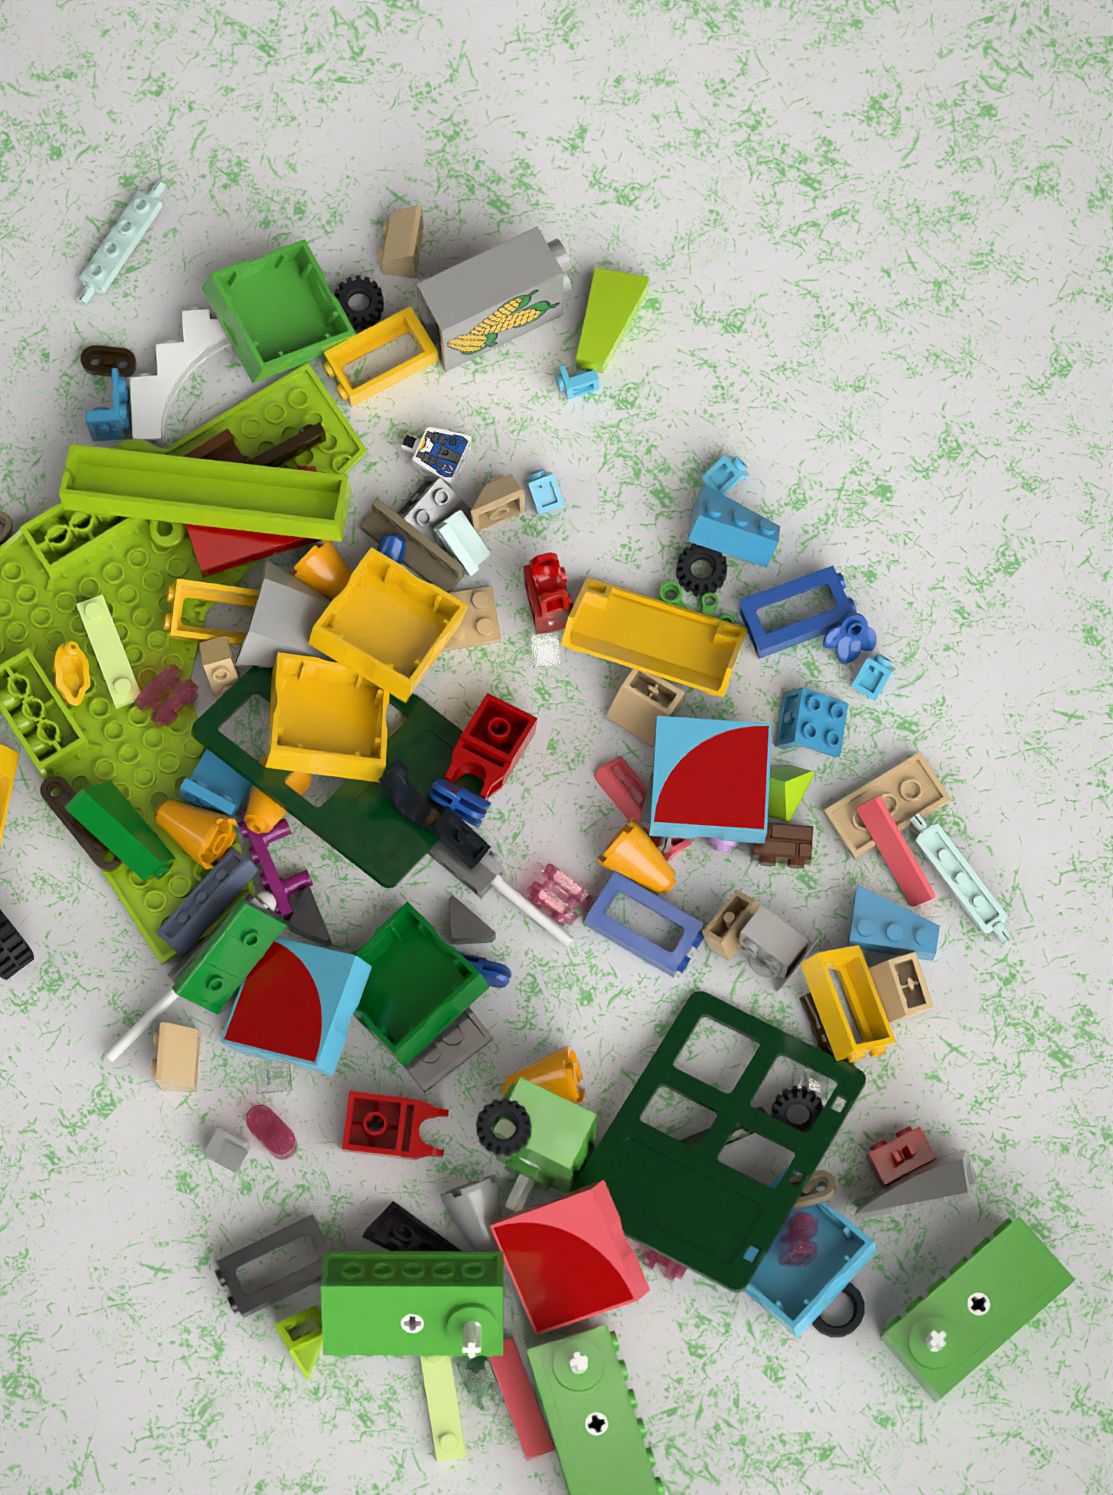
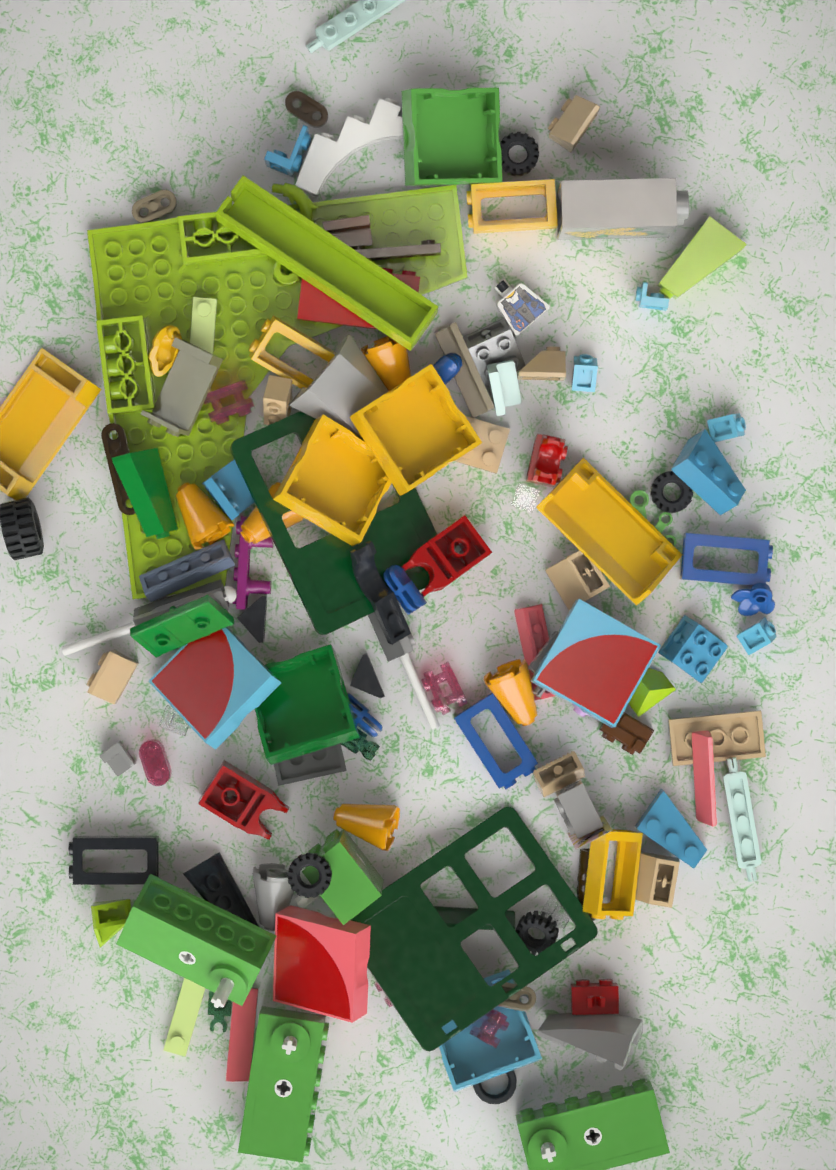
camera: 20 degrees right, 15 degrees up
(111, 700) = (184, 389): none -> panel
(492, 1000) = (360, 744): none -> clear green plate

